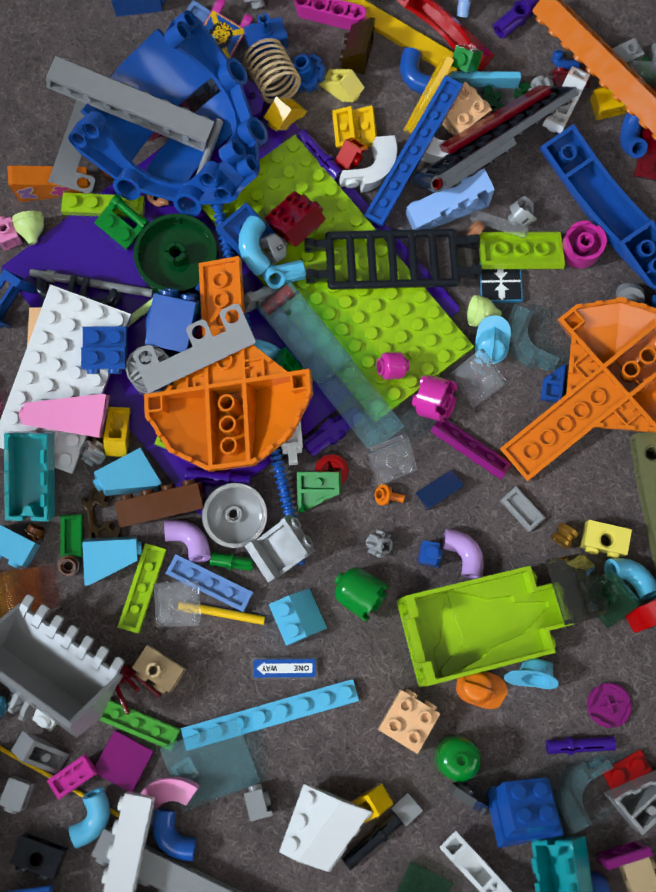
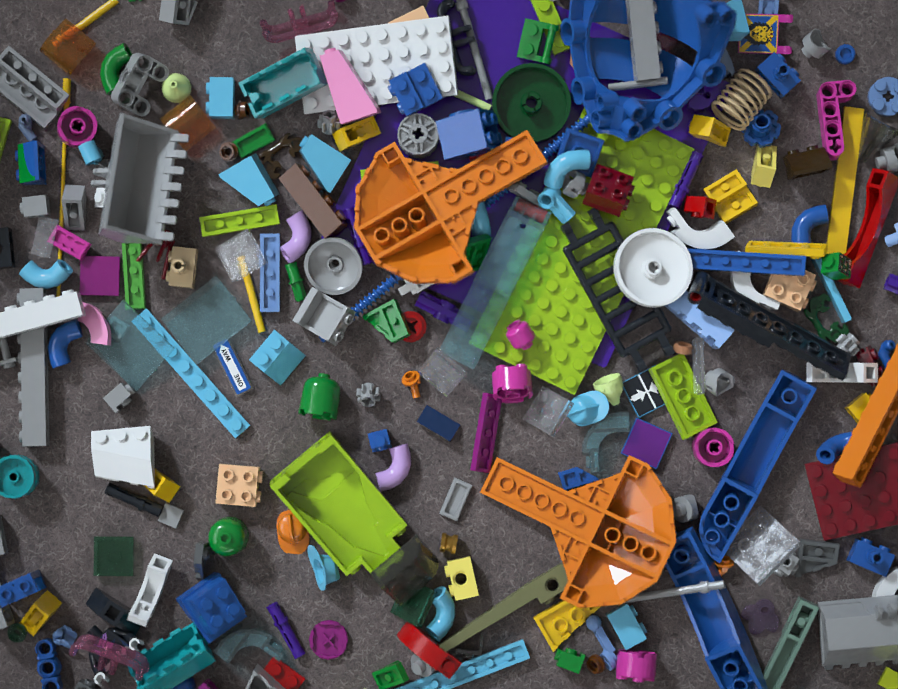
camera: 60 degrees right, 10 degrees up
(52, 800) = (44, 237): none -> clear hinge
(203, 353) = (446, 173): light grey piece -> none
(224, 672) = (206, 320): none -> clear light blue piece
(389, 214) = (653, 267): none -> white dish
(495, 119) = (790, 318): dark red tile -> none
(548, 304) = (646, 442): none -> dark purple tile

